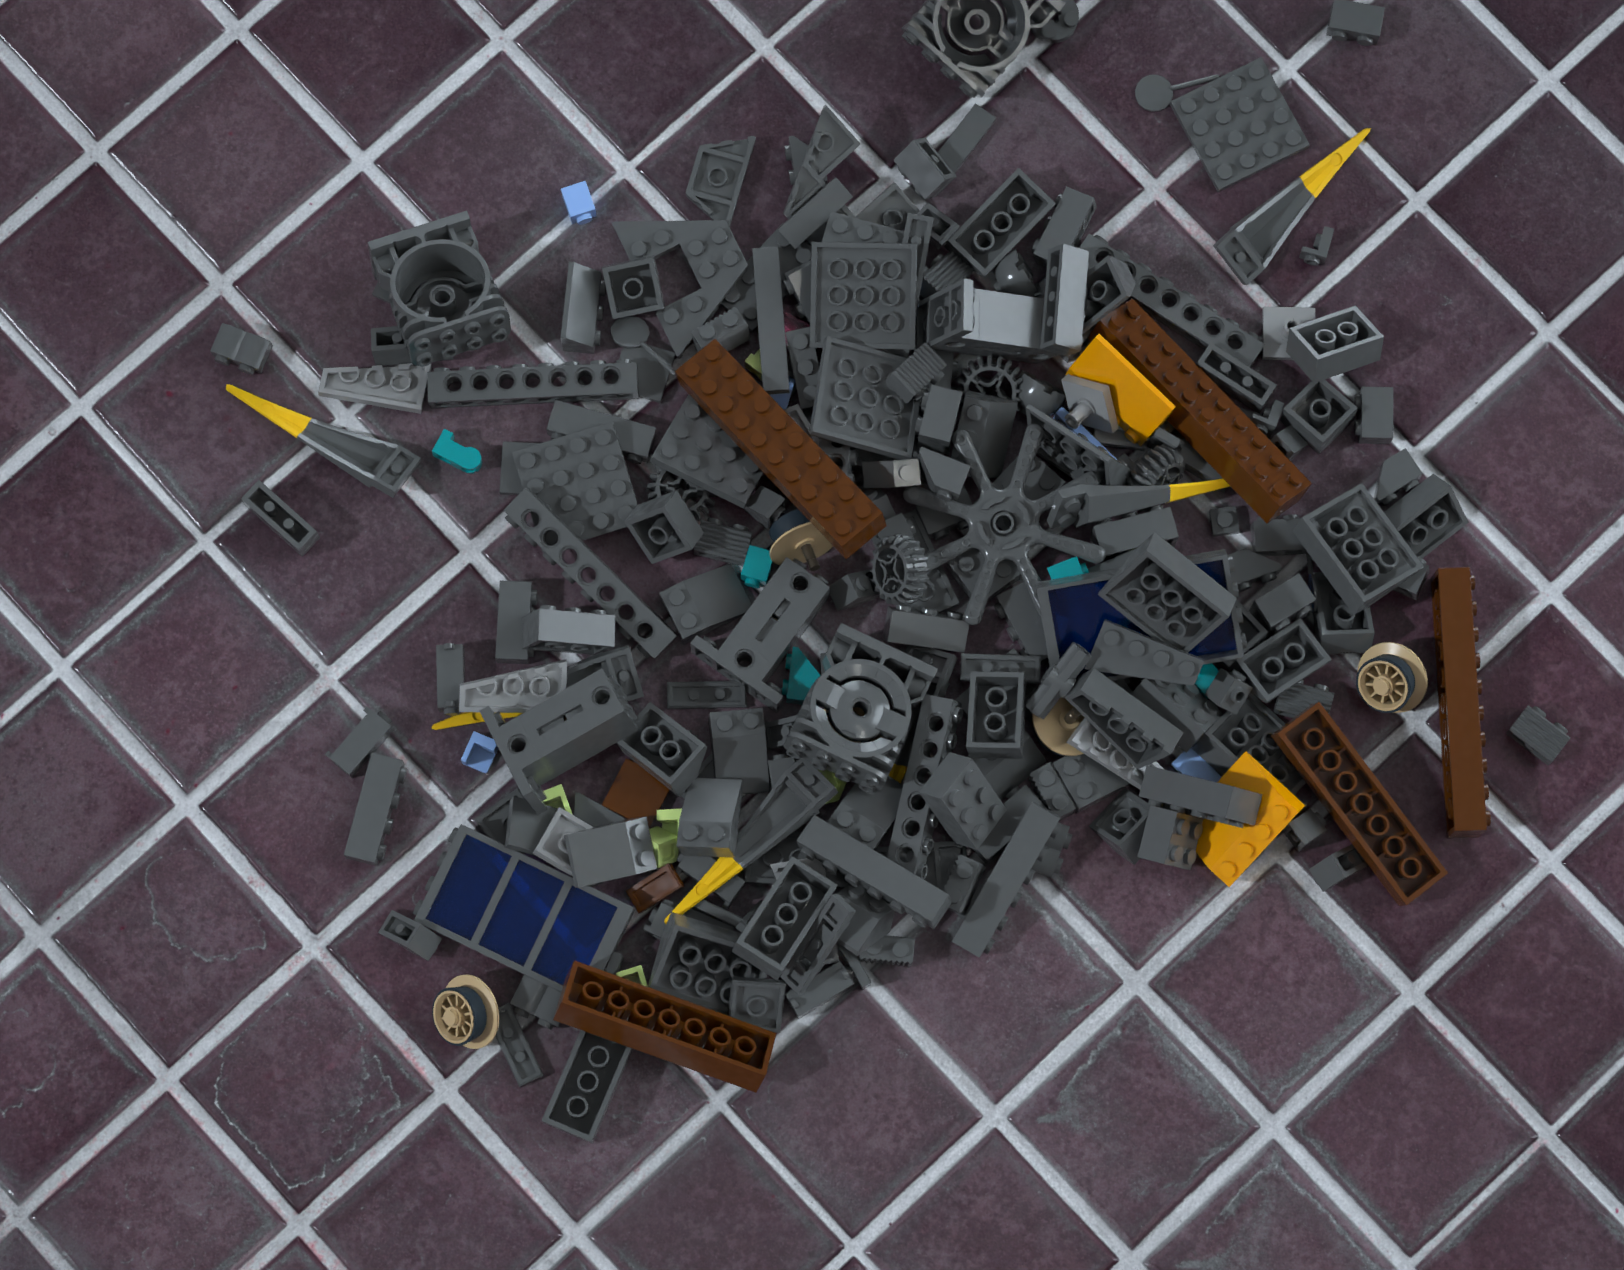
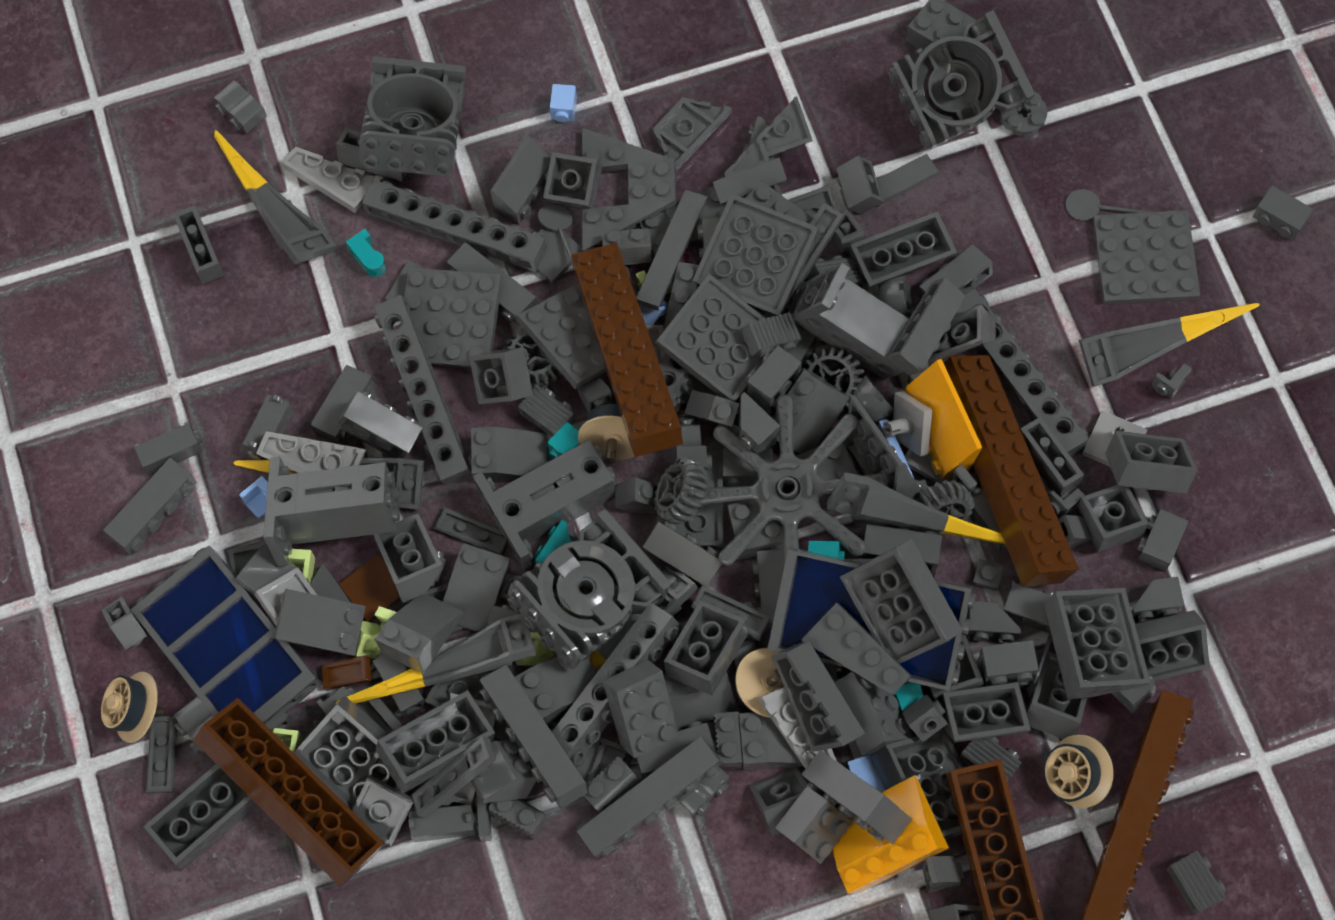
camera: 30 degrees right, 10 degrees down
(1058, 680) = (773, 640): dark grey piece -> none

